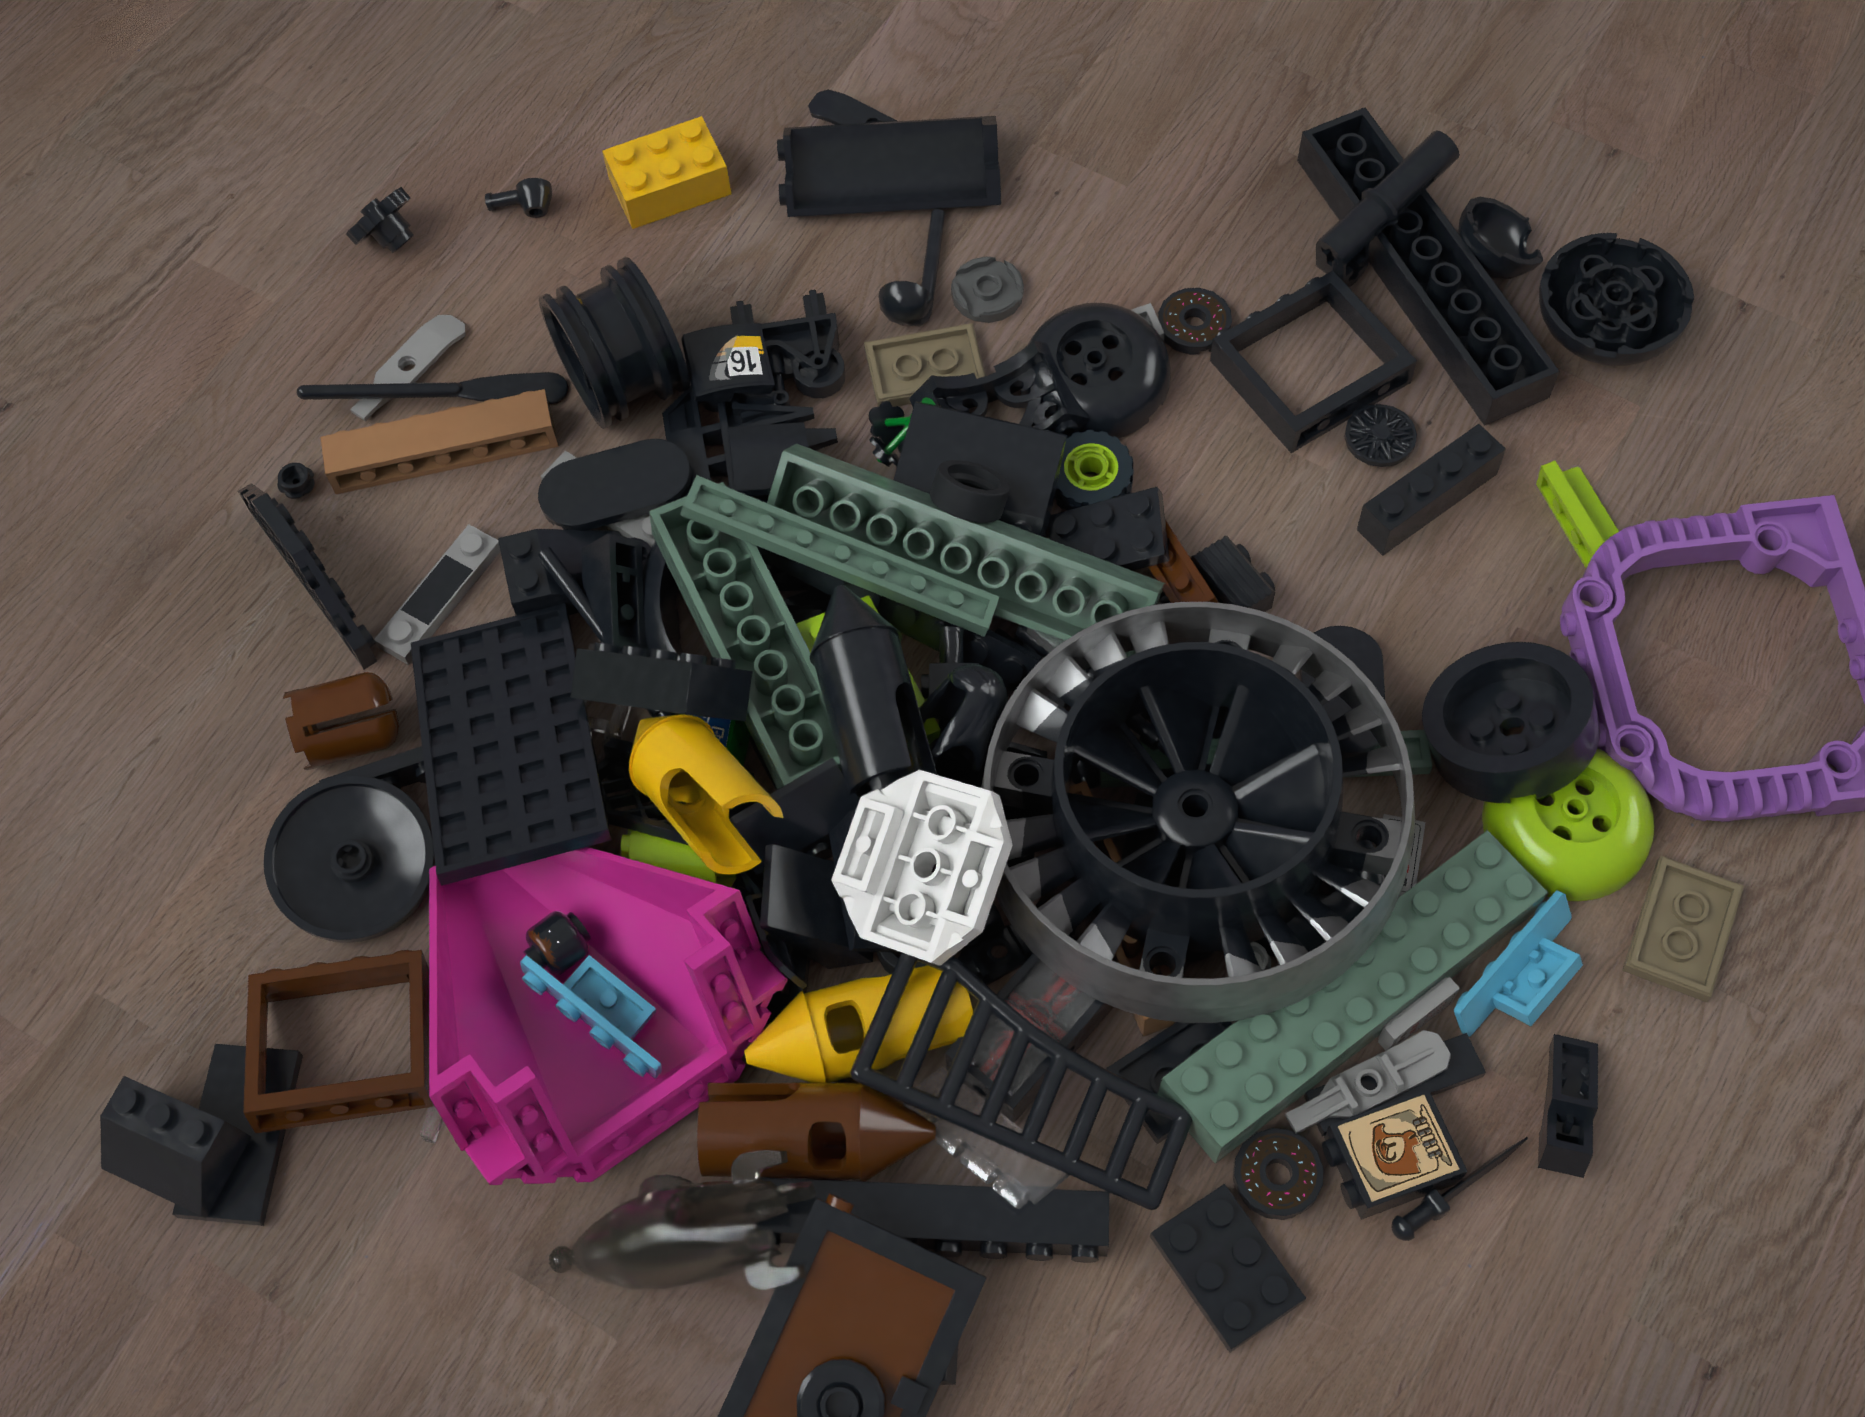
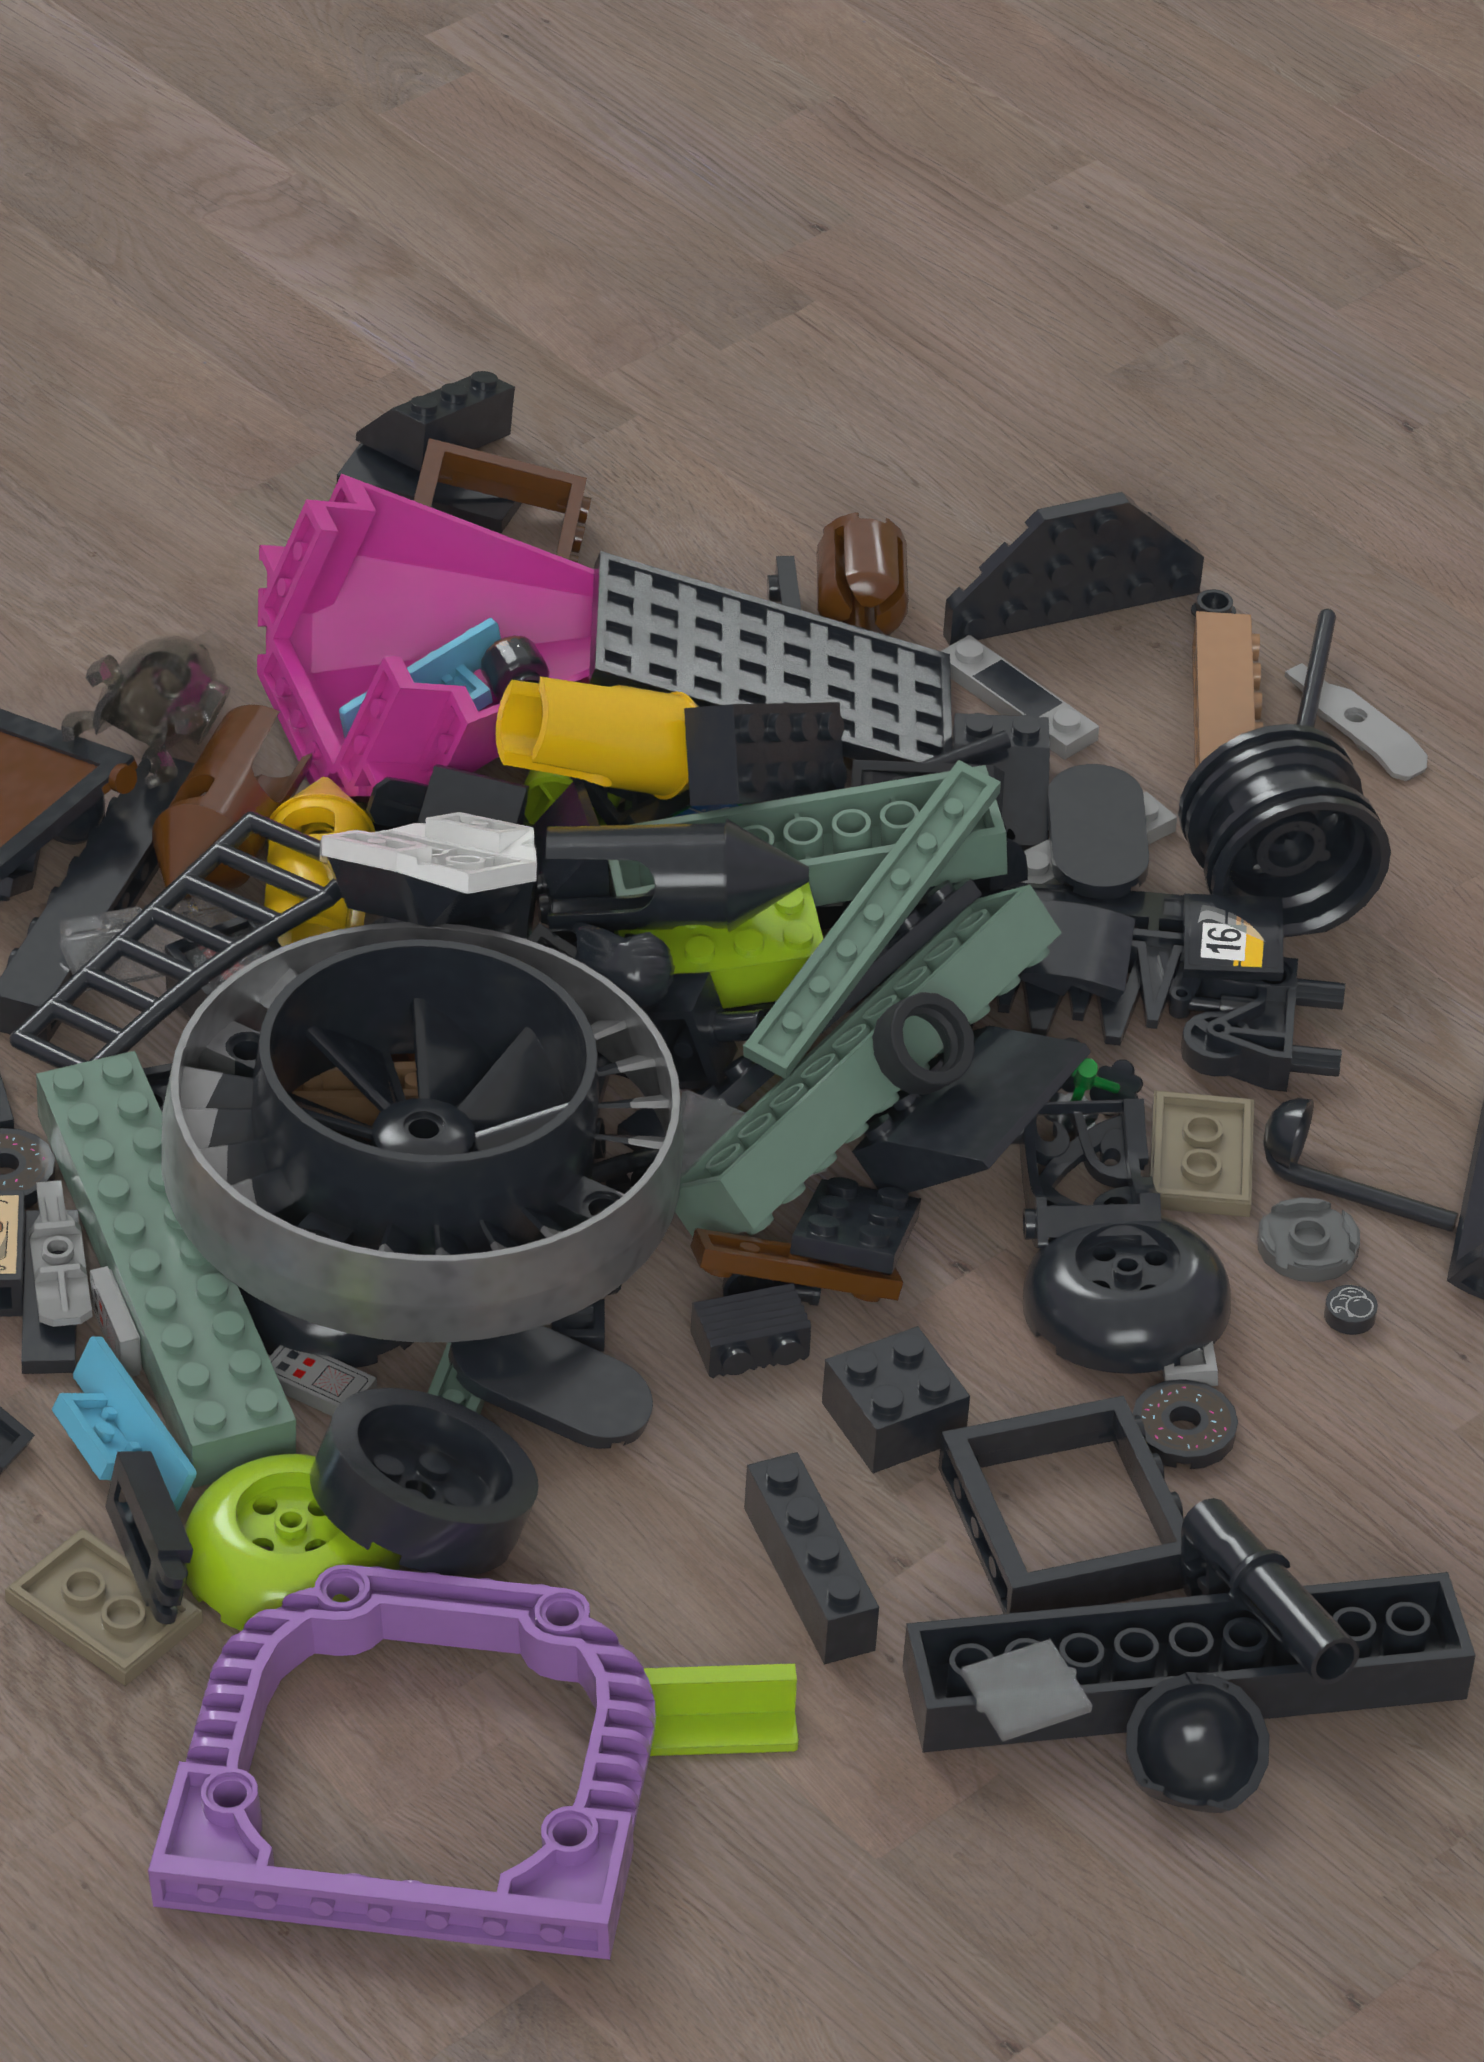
camera: 100 degrees right, 20 degrees down
(349, 859) = (709, 543): black dish -> none
(1047, 253) = (1350, 1309): none -> black tile
(1097, 454) = (965, 1248): wheel -> none
(1262, 476) = (894, 1398): none -> black brick
(1380, 435) = (925, 1552): black wheel -> none
(1519, 319) = (1026, 1690): none -> clear piece
(1599, 283) = (1080, 1833): black brick -> none
(1636, 896) = (149, 1532): none -> black hinge

